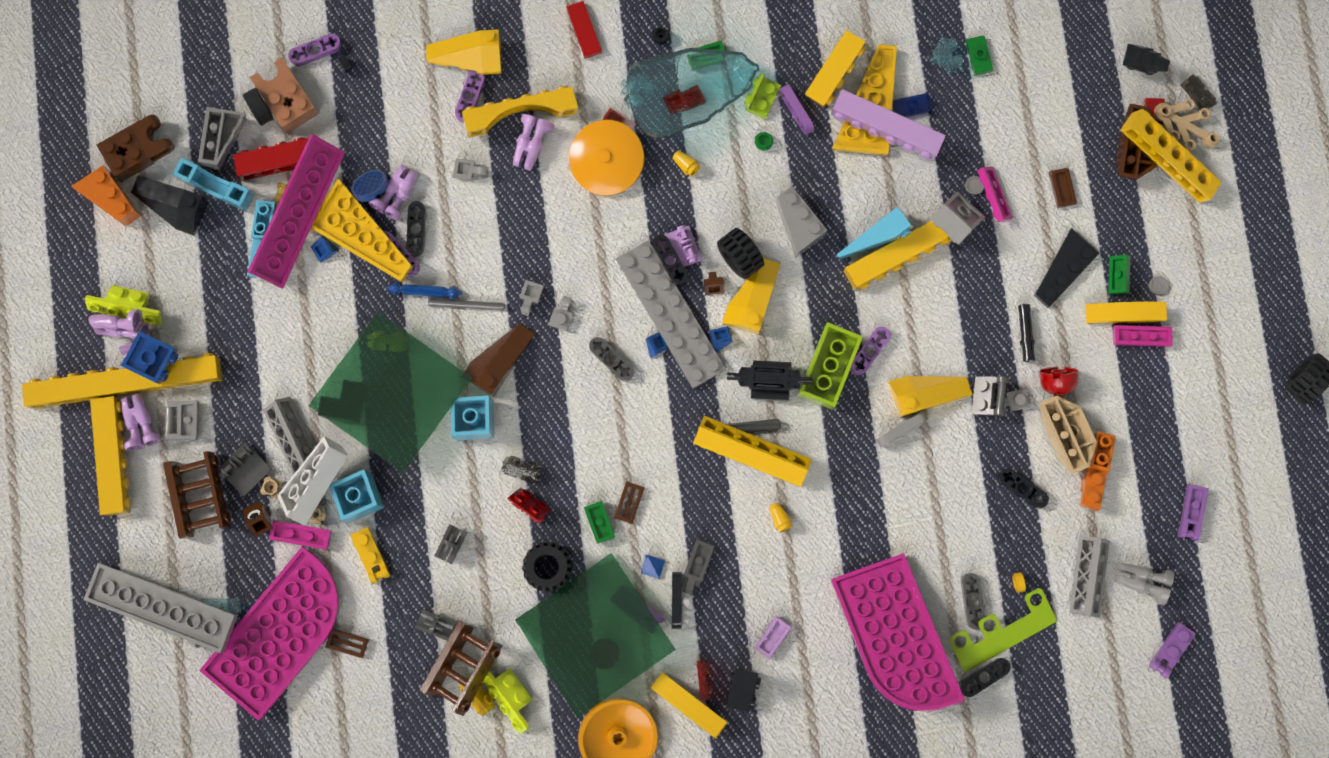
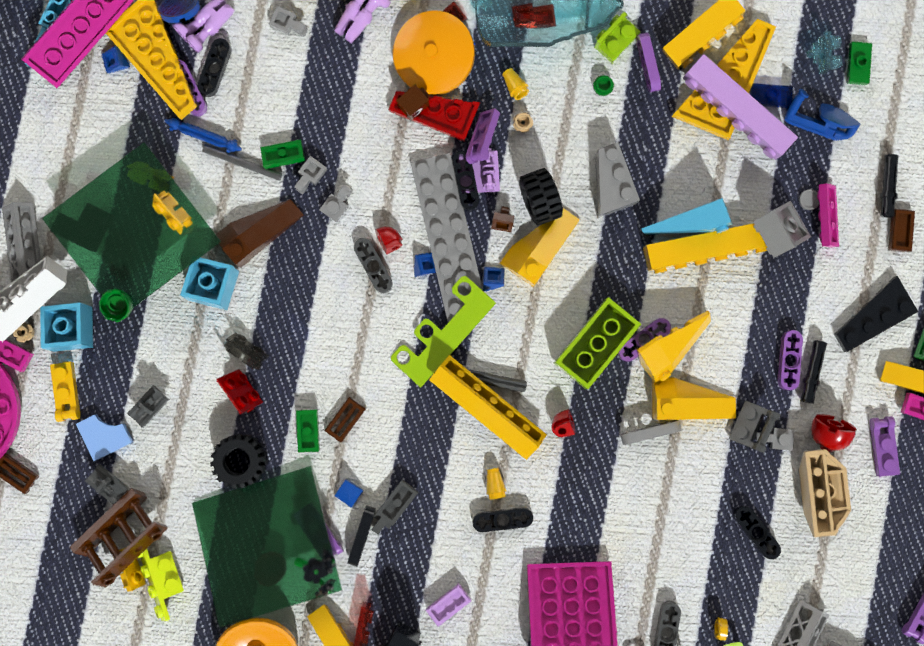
camera: 20 degrees right, 5 degrees up
(399, 460) = (116, 305): none -> green hair
(414, 361) = (165, 205): none -> yellow hinge
(417, 586) = (103, 438): none -> light blue tile
(500, 286) = (282, 154): none -> green plate
(603, 205) = (413, 102): none -> reddish brown brick
(618, 331) = (388, 238): none -> red piece
(632, 209) = (443, 115): none -> red wing
(648, 636) = (316, 570): none -> black plant
(672, 217) = (482, 136): none -> medium lavender plate
(696, 405) = (445, 341): none -> lime piece
(703, 189) = (523, 127): none -> tan plate
(770, 380) = (529, 338): black piece -> none
(799, 539) = (496, 513): none -> black beam
(823, 446) = (563, 424): none -> red piece
(891, 357) = (663, 355): none -> yellow wedge
(971, 111) = (833, 118): none -> blue piece
(995, 316) = (798, 355): none -> medium lavender beam
(1041, 160) = (889, 186): none -> black pin
(1095, 475) = (834, 548): orange slope -> none
(1109, 379) = (884, 446): none -> medium lavender plate

